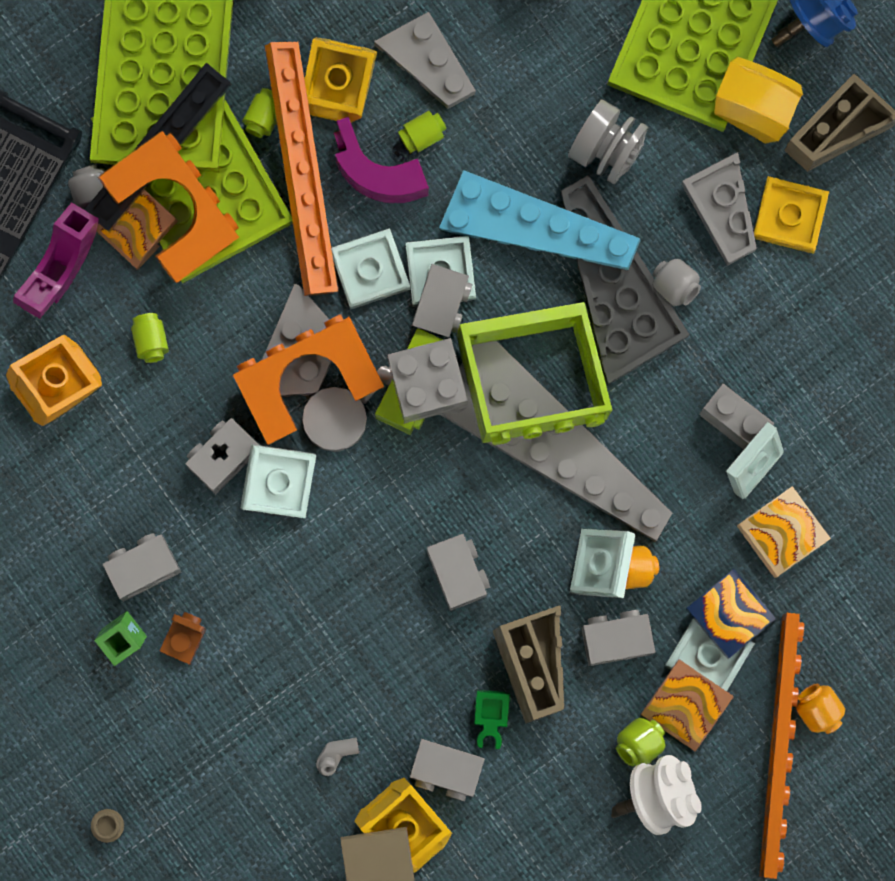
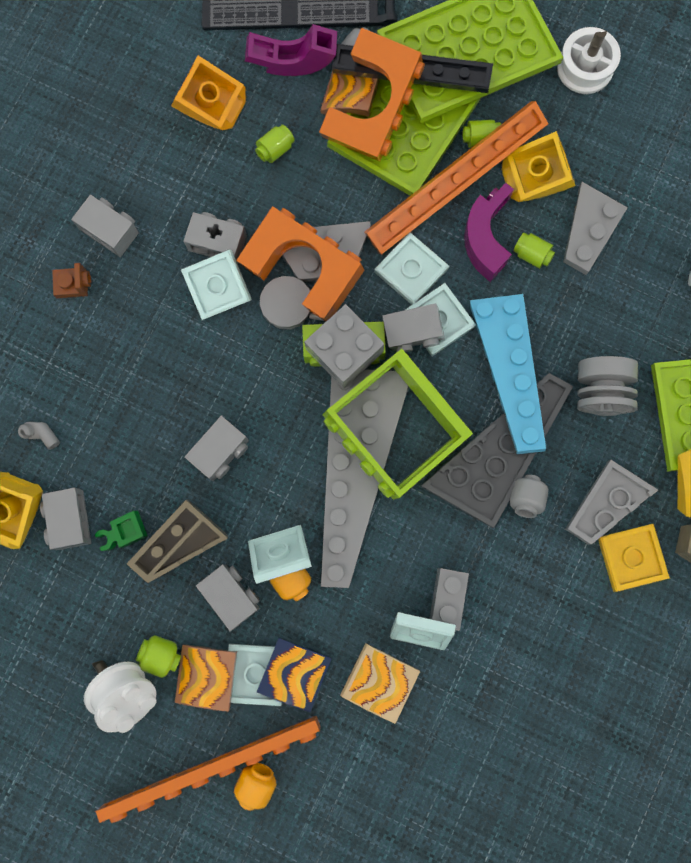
camera: 70 degrees right, 0 degrees up
(120, 638) = (44, 236): bright green brick -> none

